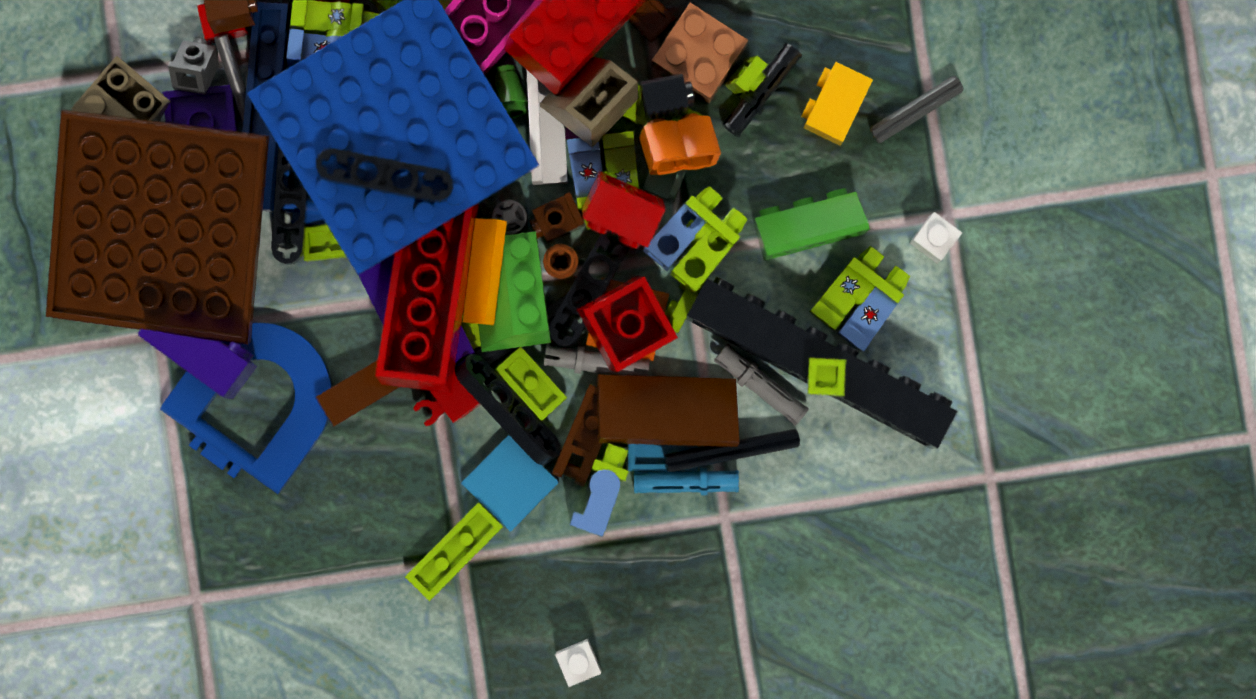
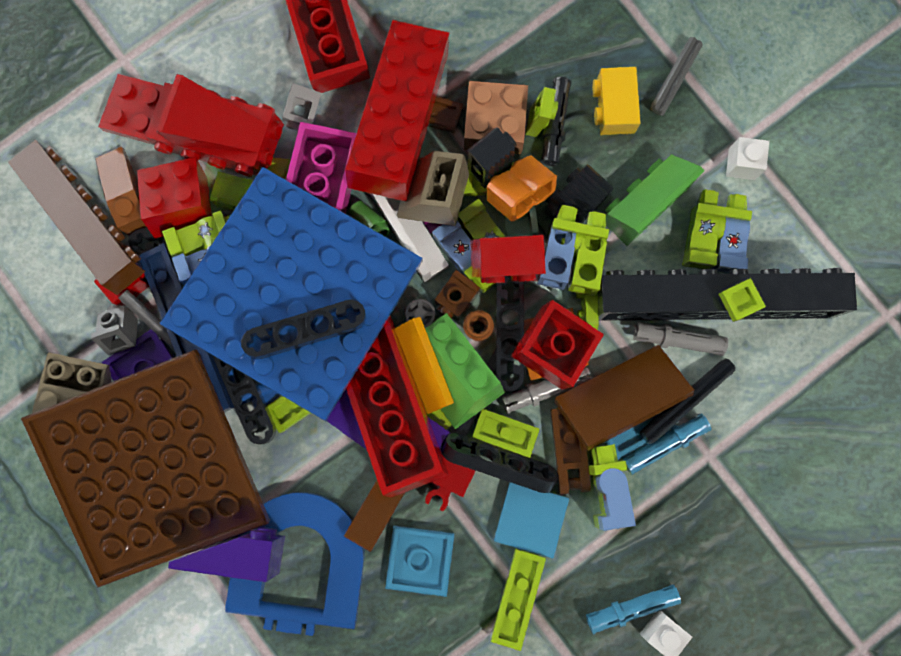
camera: 25 degrees left, 5 degrees down
(377, 463) = (420, 560): none -> dark azure tile
(561, 622) = (628, 610): none -> dark azure pin
(741, 183) = (584, 192): none -> black brick

